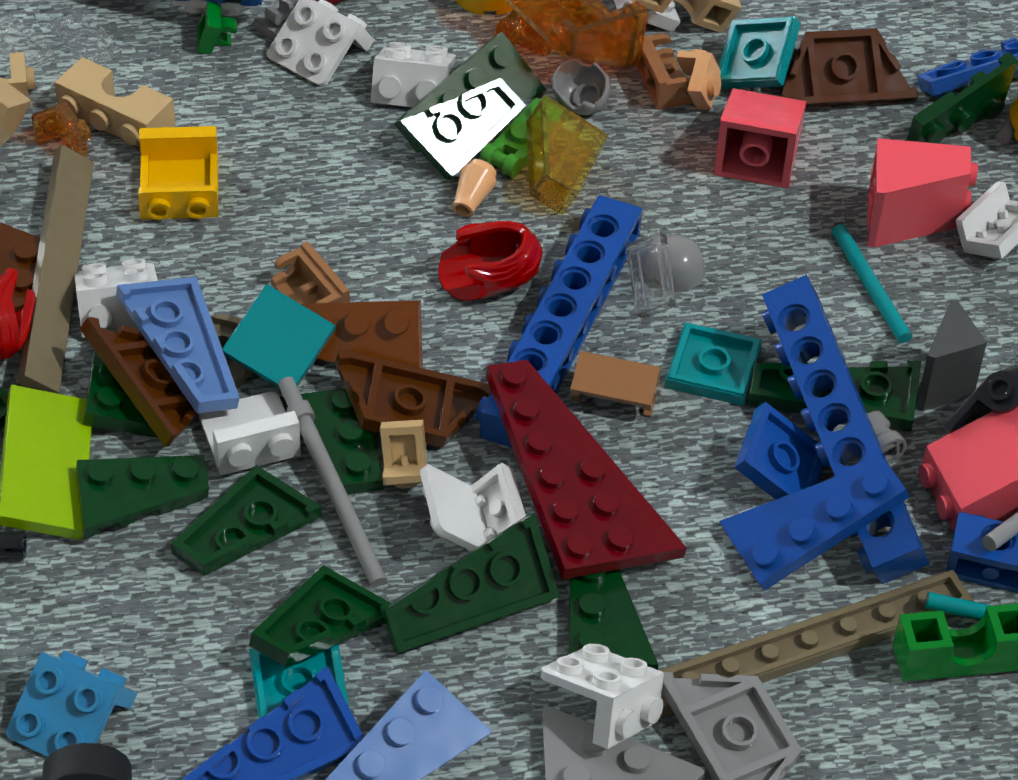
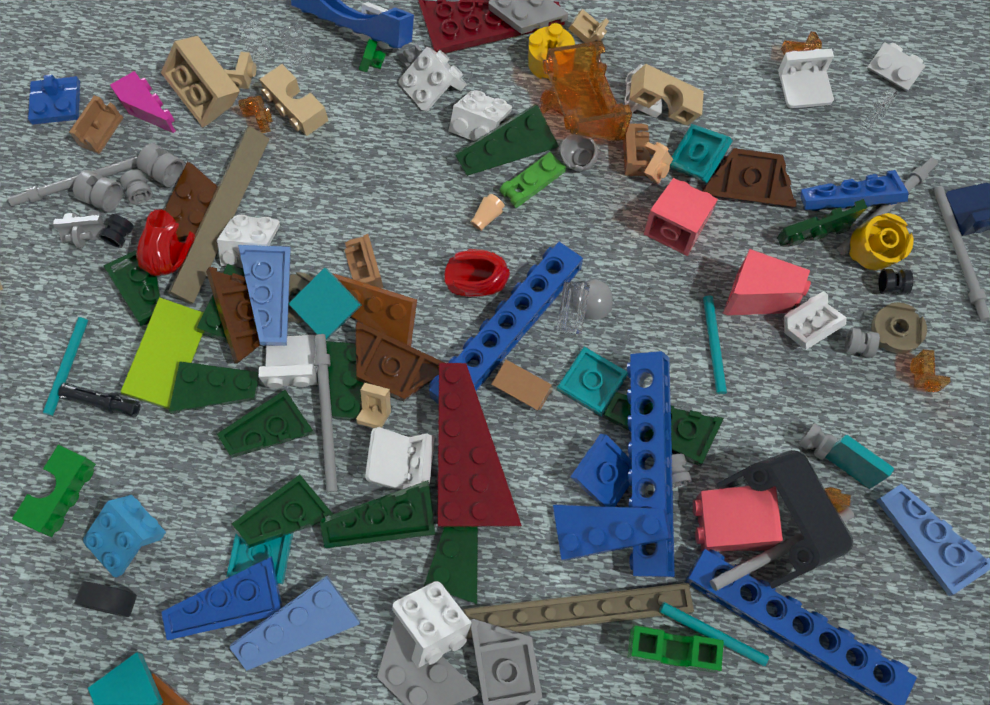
camera: 20 degrees right, 20 degrees up
(178, 172) = (315, 160): yellow panel -> none
(461, 127) = (494, 166): wing -> none
(559, 153) = (547, 202): clear yellow slope -> none
(952, 360) = (744, 427): dark grey slope -> none

